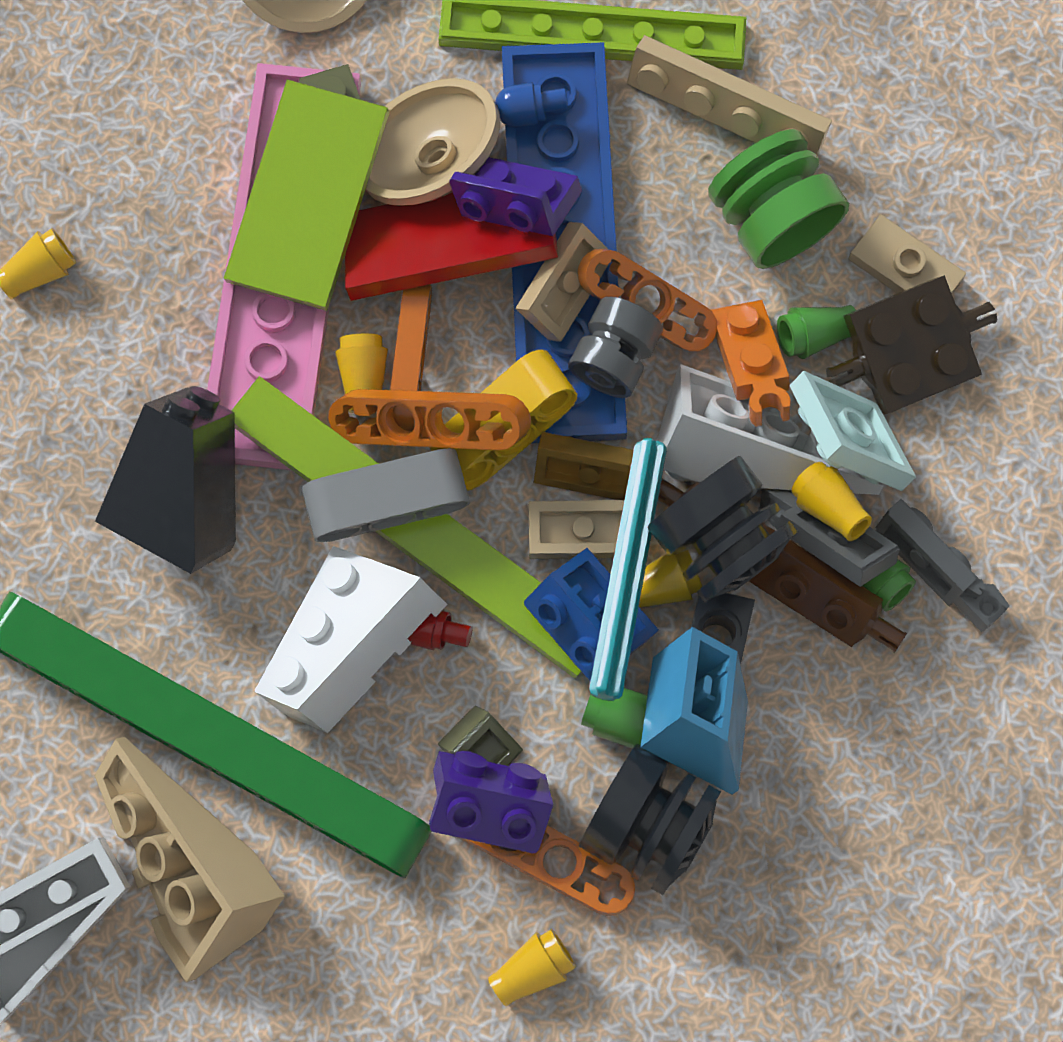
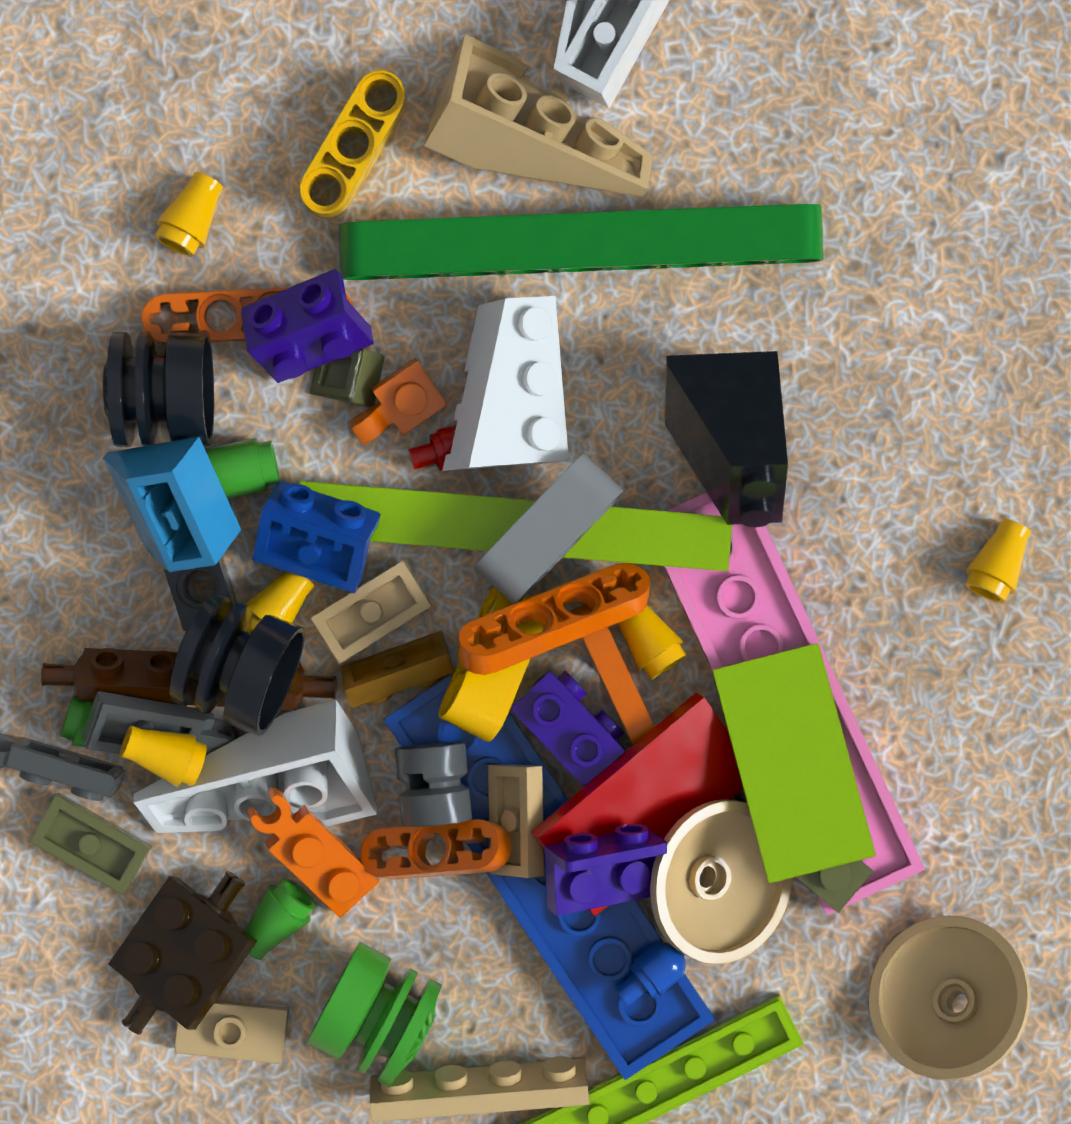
camera: 150 degrees right, 15 degrees up
(318, 940) = (354, 118): none -> yellow beam
(443, 691) = (404, 398): none -> orange plate
(474, 331) = (567, 728): none -> dark purple bracket
(628, 570) = (302, 588): teal axle -> none
(851, 432) = (185, 830): light aqua plate -> none
(943, 480) = (90, 843): none -> olive plate

